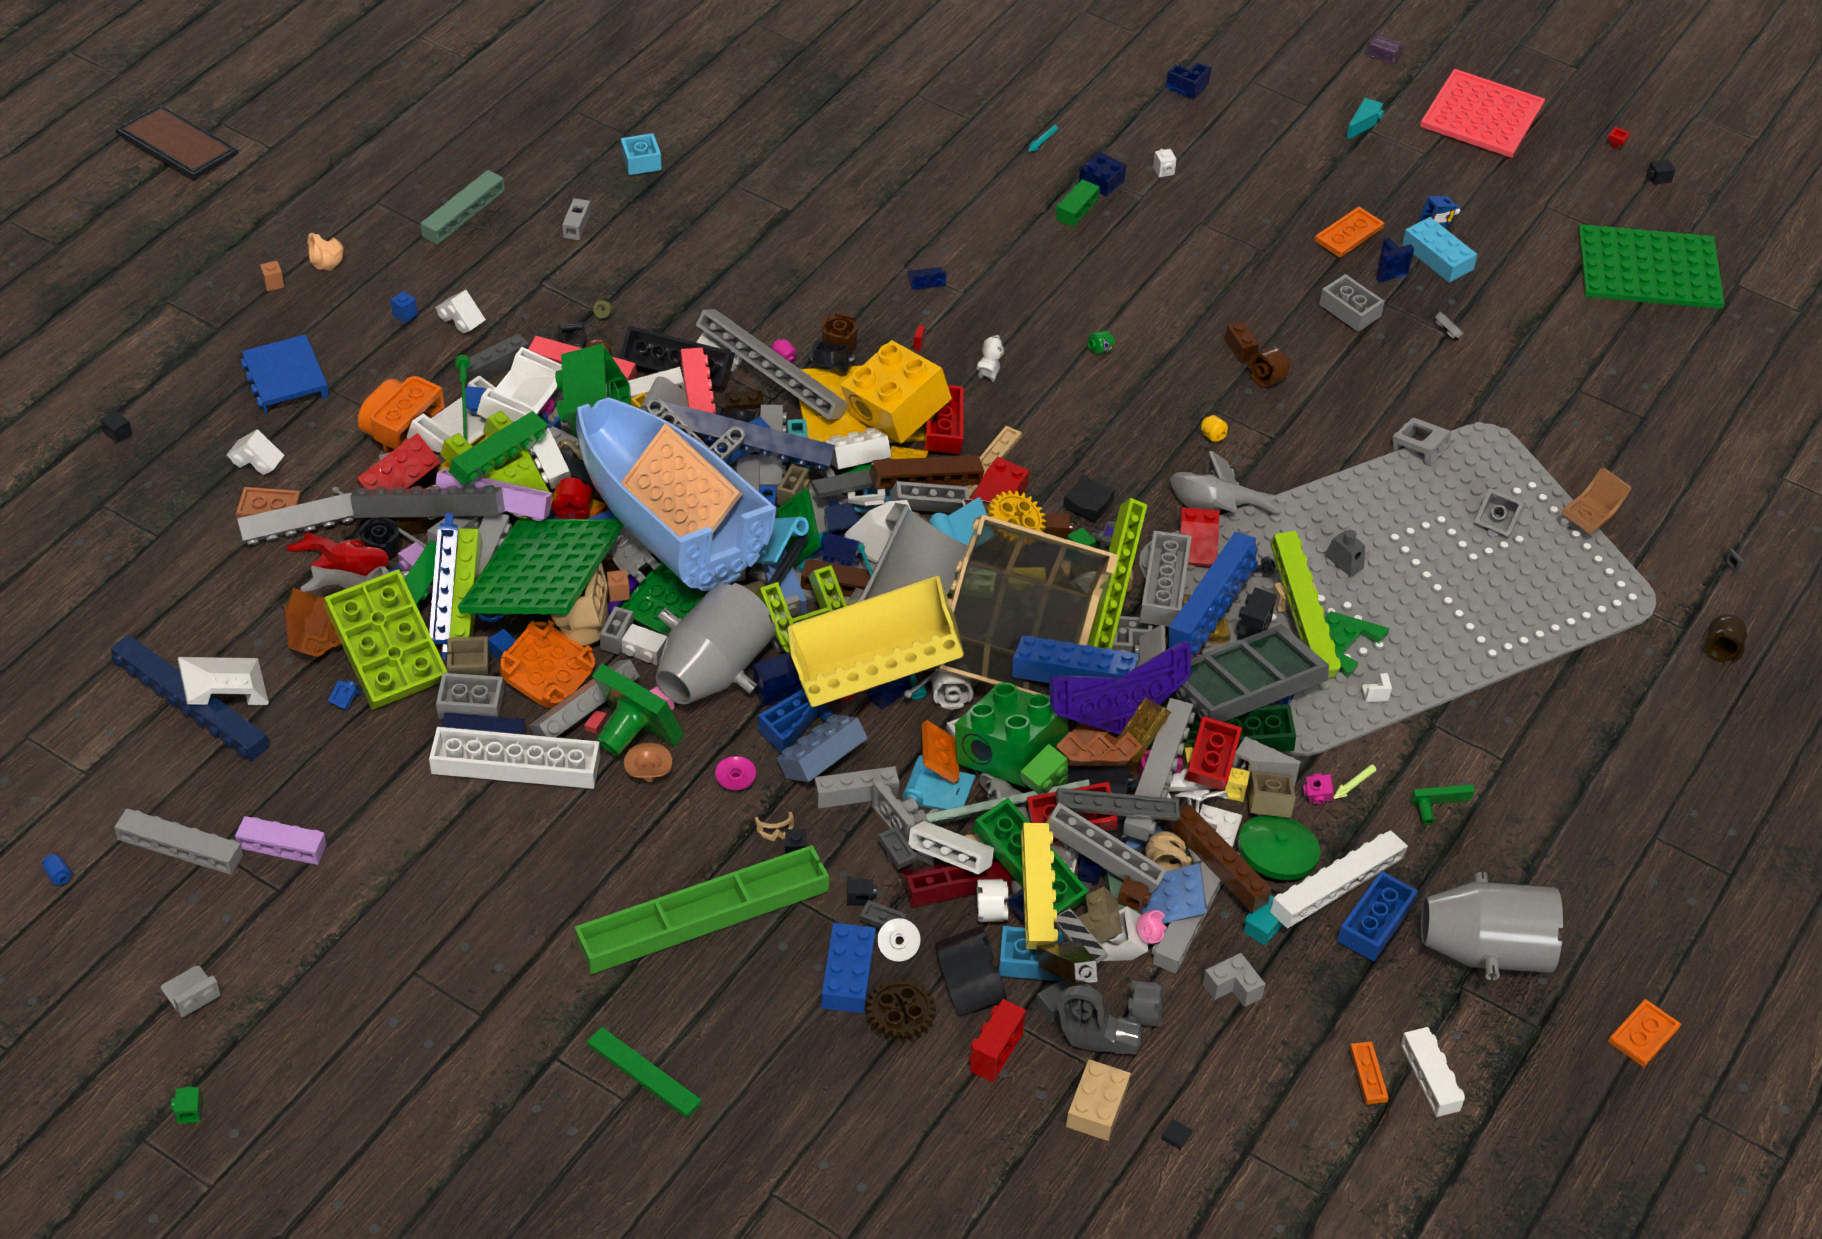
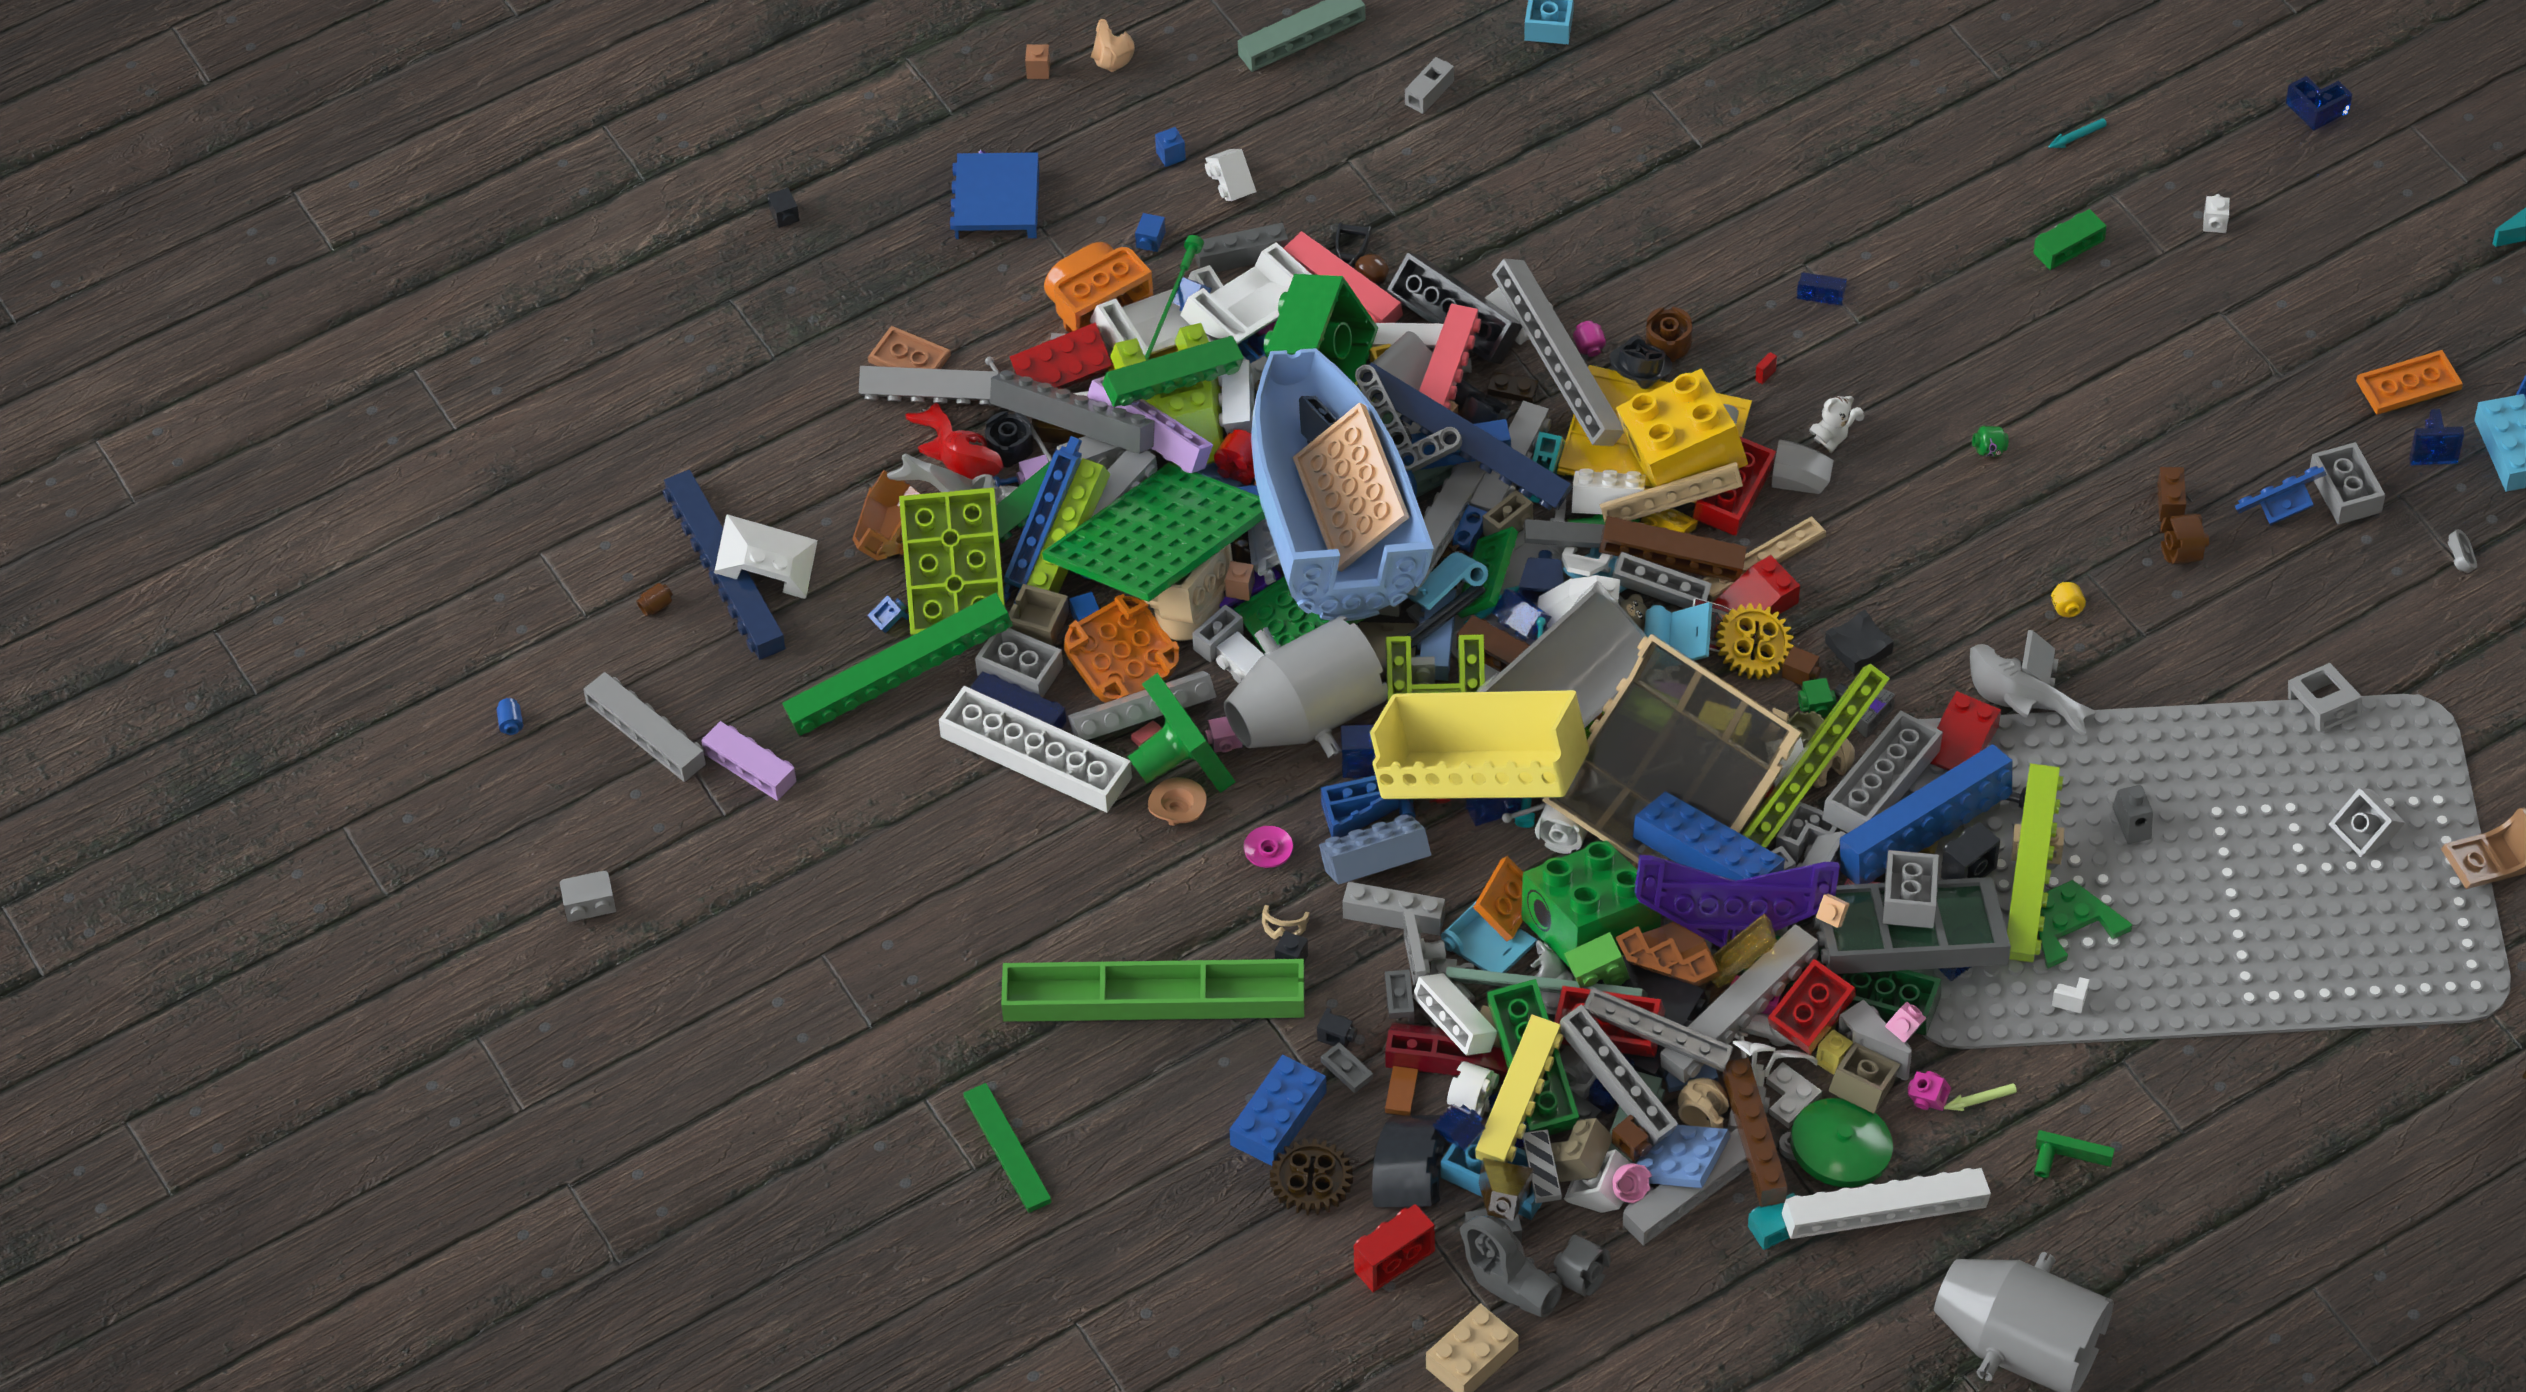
camera: 30 degrees right, 5 degrees up
(142, 741) = (654, 599): none -> reddish brown brick
(187, 1105) = (533, 1017): green brick -> none
(255, 450) = (921, 288): white brick -> none
(373, 728) = (897, 664): none -> green brick
(418, 366) = (1150, 232): none -> blue brick
(602, 309) = (1402, 217): olive tile -> none
(626, 450) = (1314, 417): none -> black slope
(891, 931) = (1338, 1097): white dish -> none
(910, 432) = (1673, 493): none -> tan tile
(933, 921) = (1401, 1091): none -> dark orange tile
(981, 396) = (1801, 468): none -> light grey slope
(1006, 927) = (1460, 1126): none -> clear blue brick
(1103, 172) = (2124, 207): clear blue brick -> none
(1194, 678) = (1832, 910): none -> light nougat plate
(1234, 976) = (1701, 1271): light grey brick -> none
(1239, 646) = (1910, 889): none -> light grey brick
(1285, 741) = (1905, 1021): none -> bright pink brick
(1319, 324) = (2285, 499): none -> blue bracket
(1377, 916) = (1906, 1261): blue brick -> none

